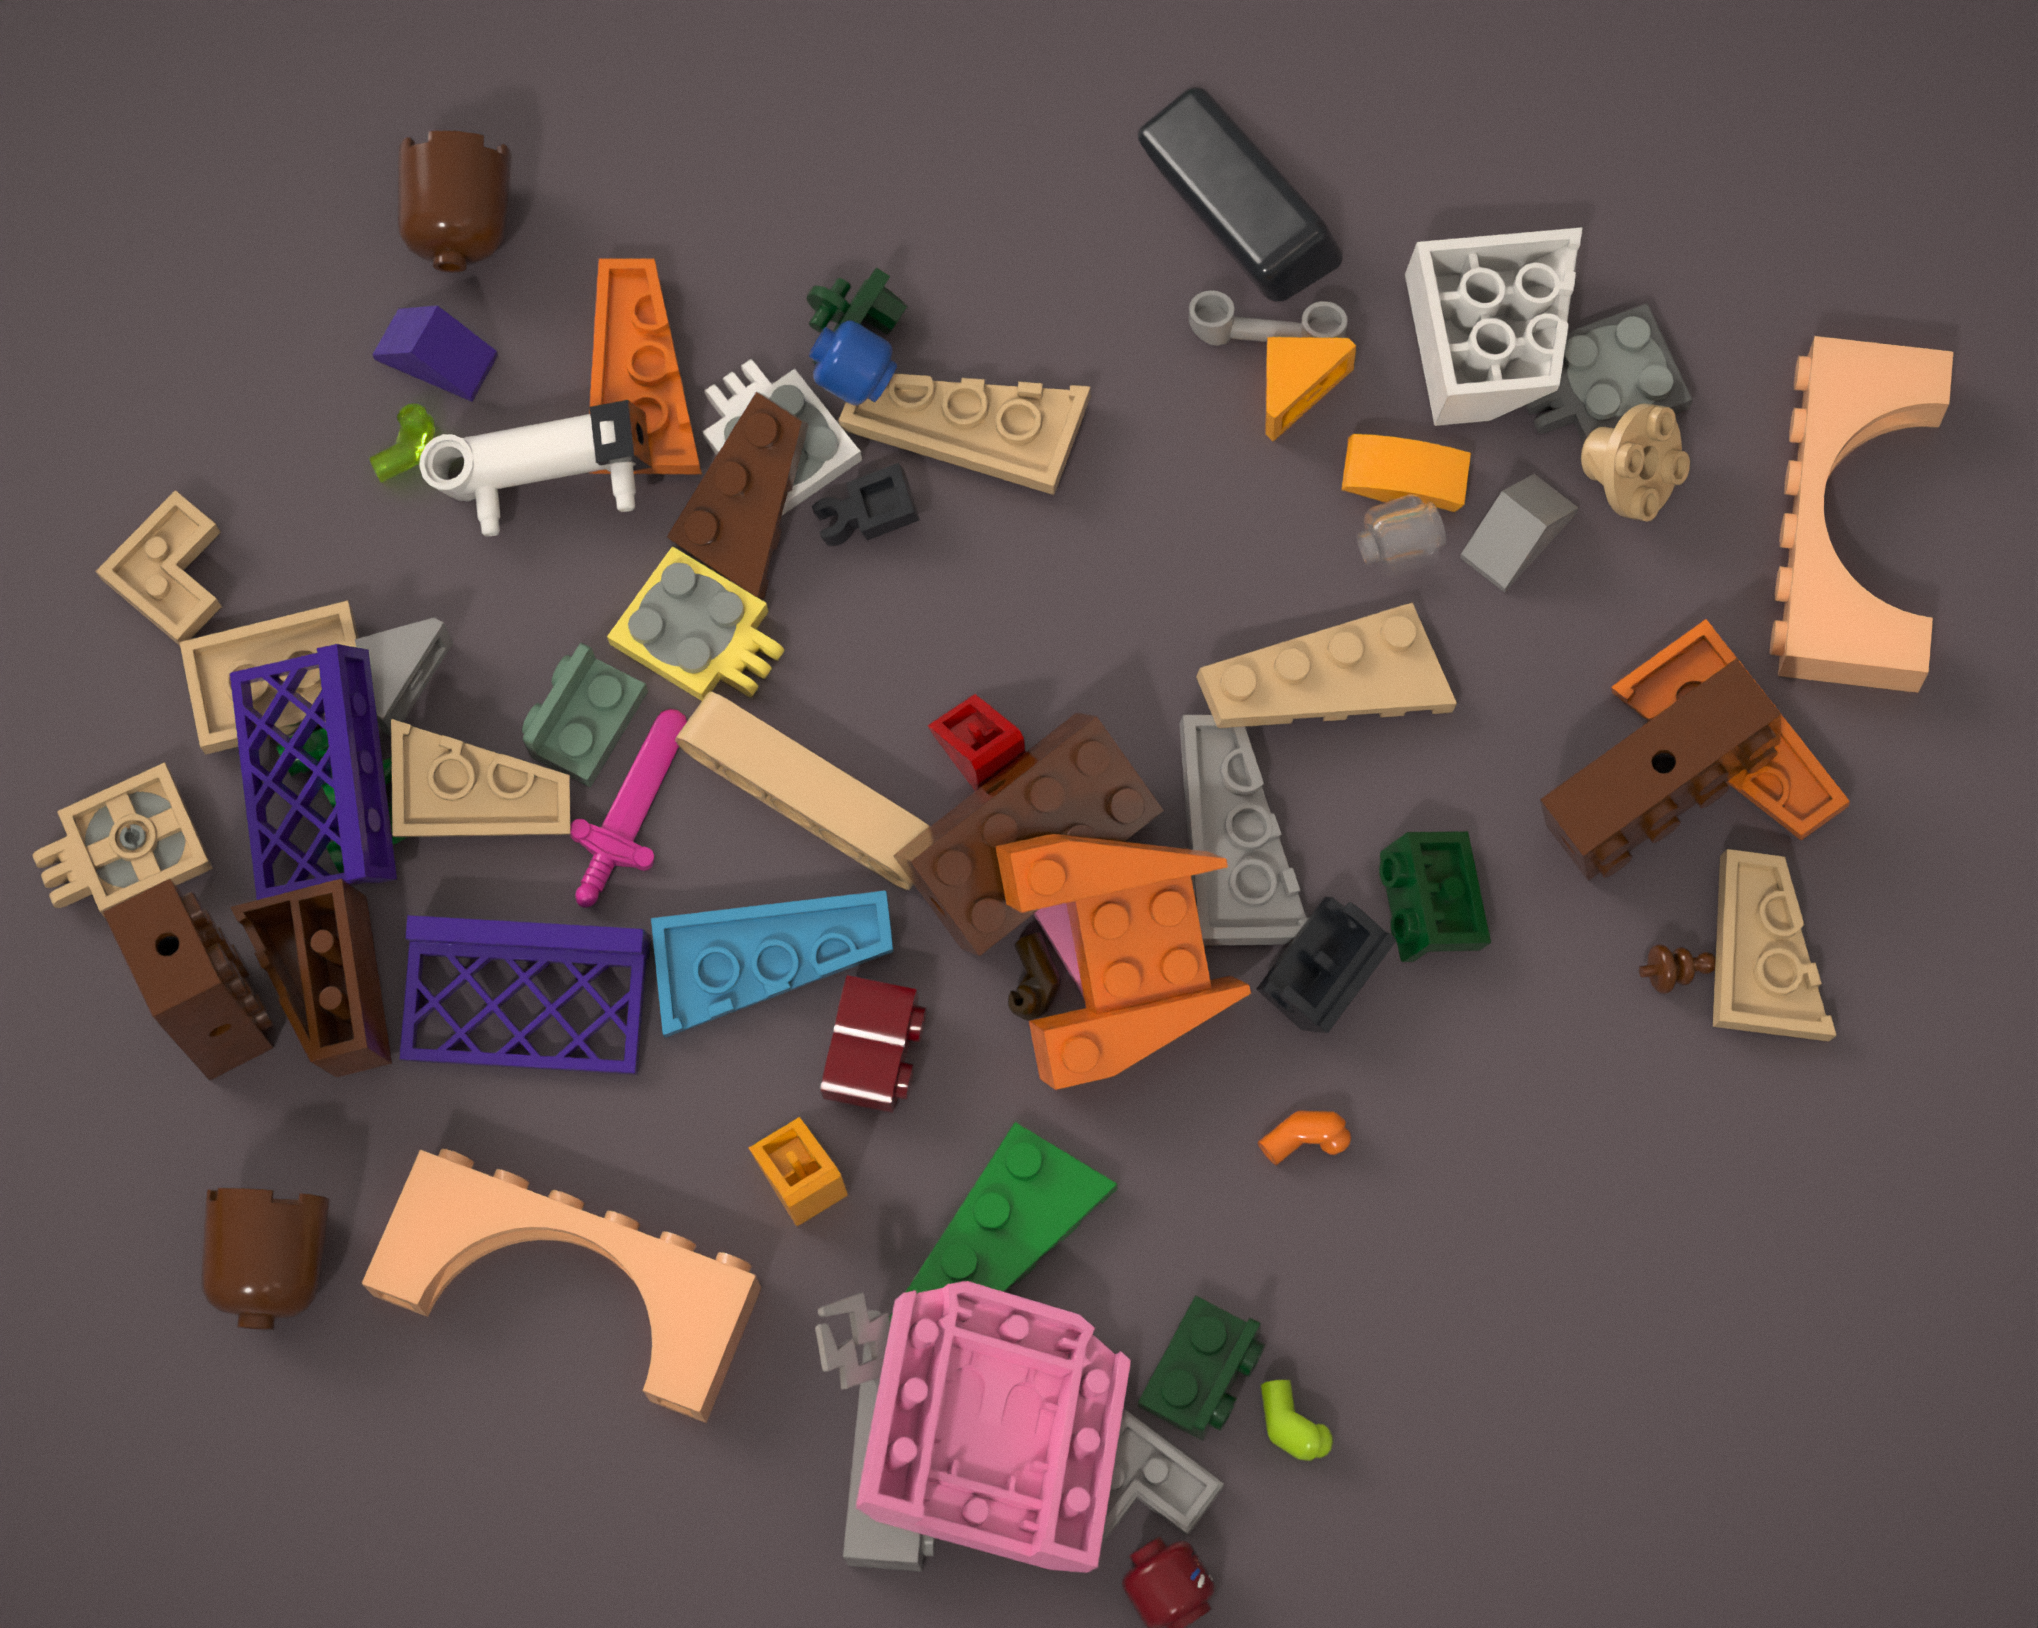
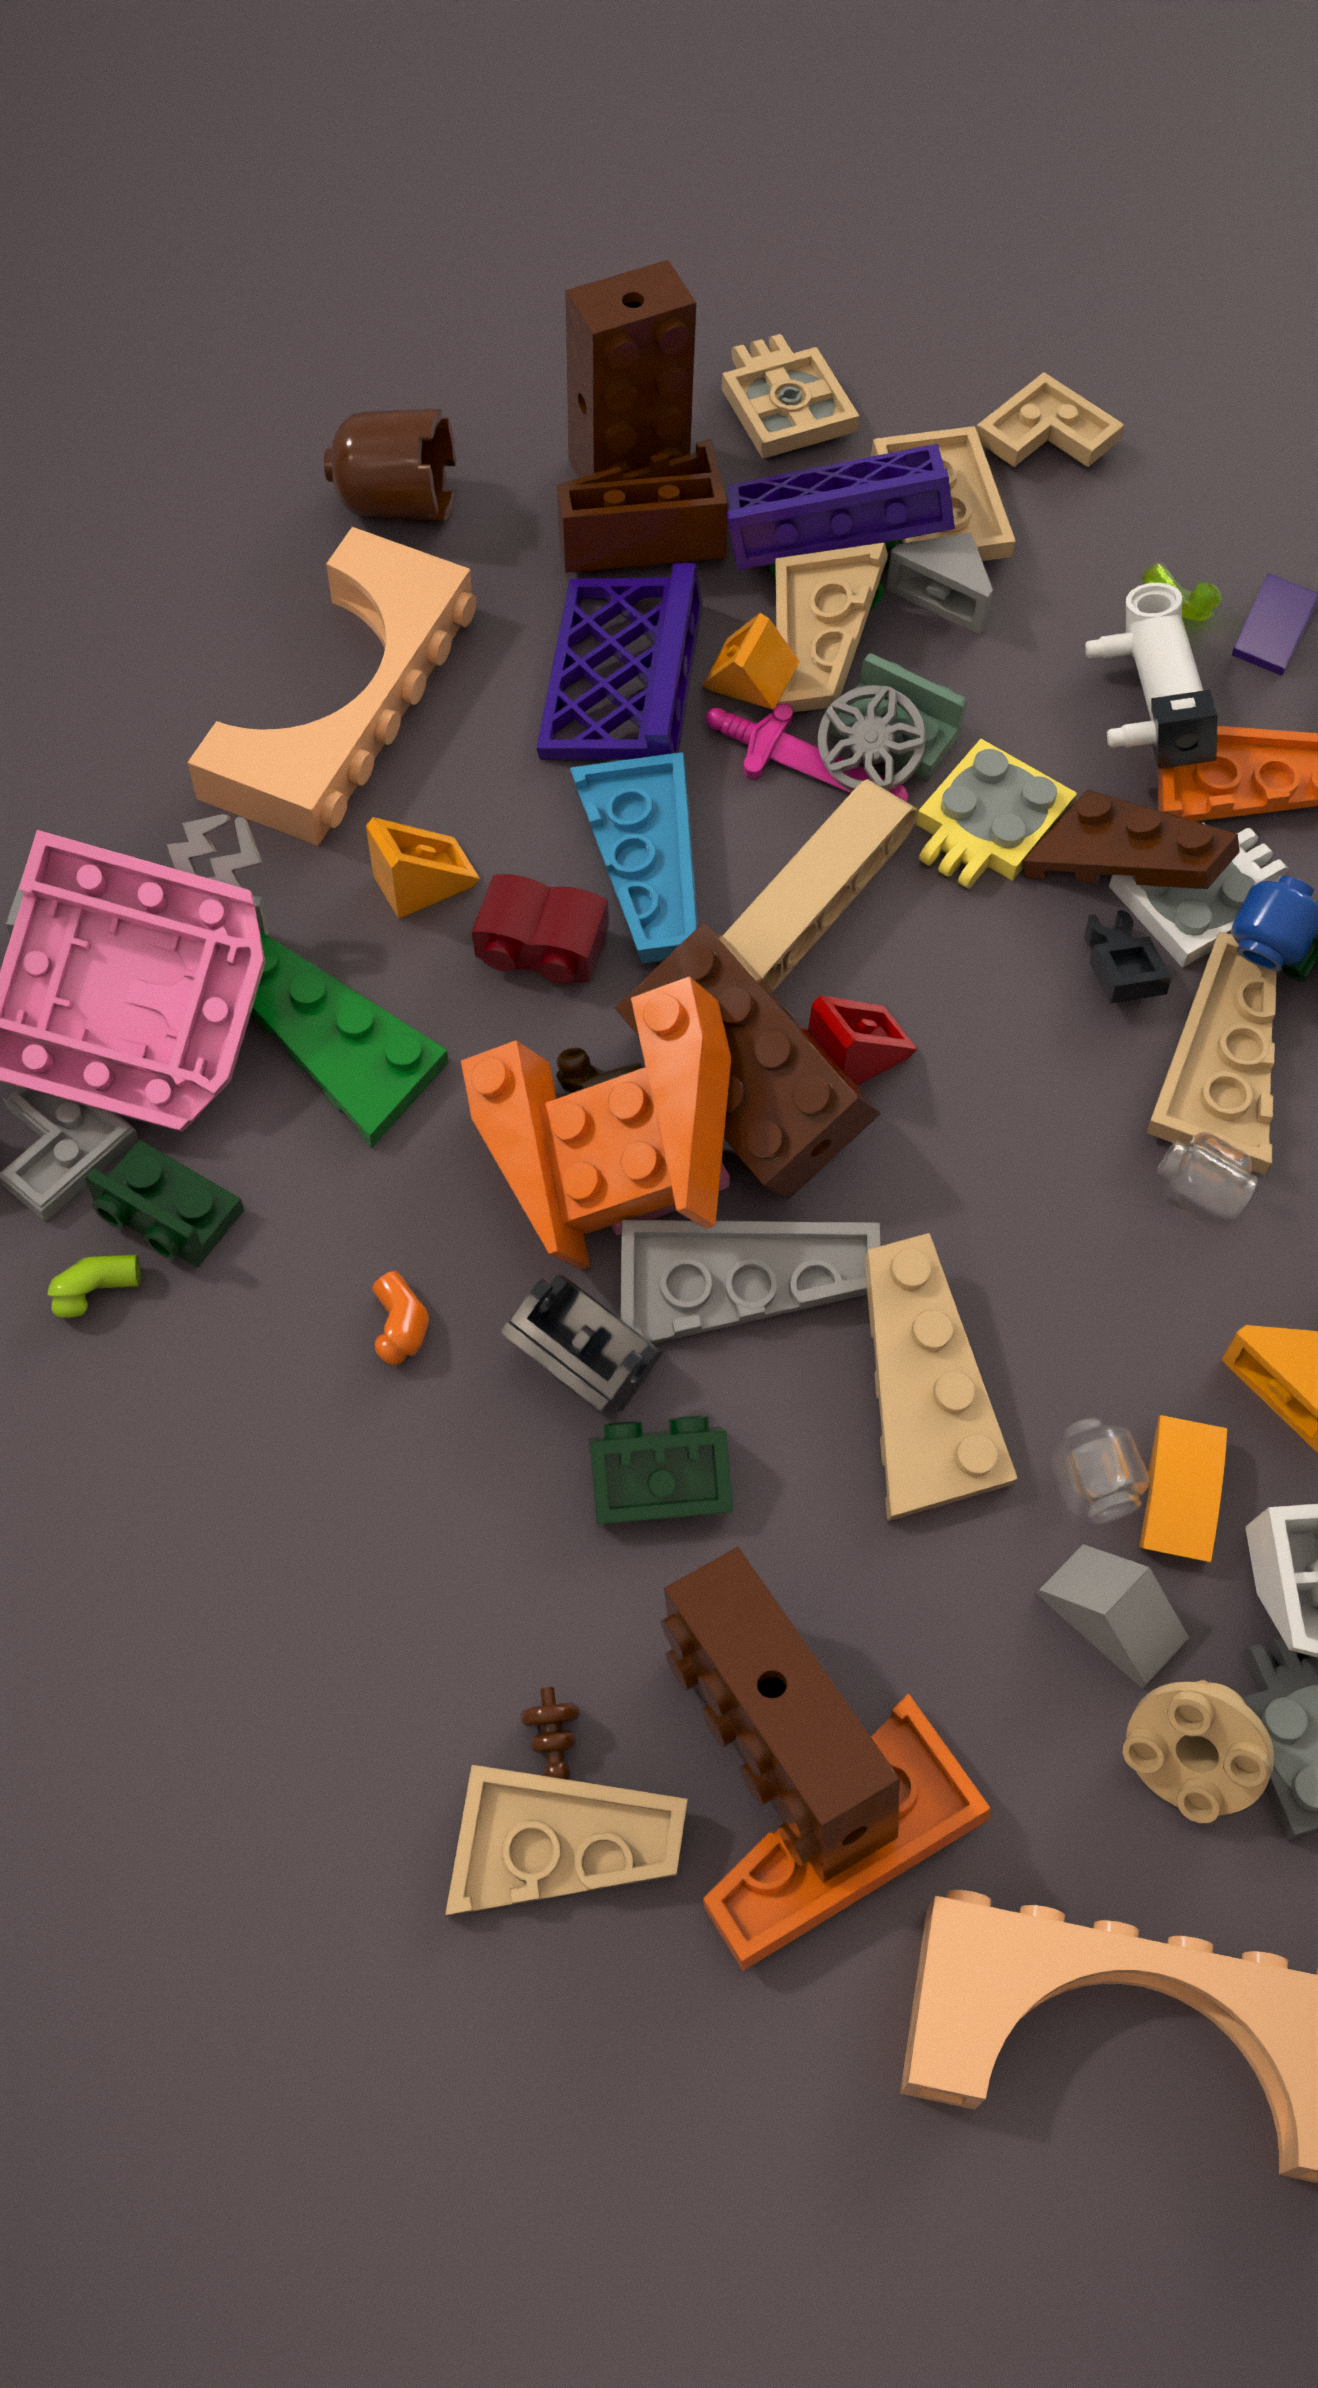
camera: 85 degrees right, 10 degrees down
(532, 863) = (753, 664): none -> light orange slope
(622, 737) = (871, 737): none -> light grey wheel
(1109, 440) = (1207, 1178): none -> clear head

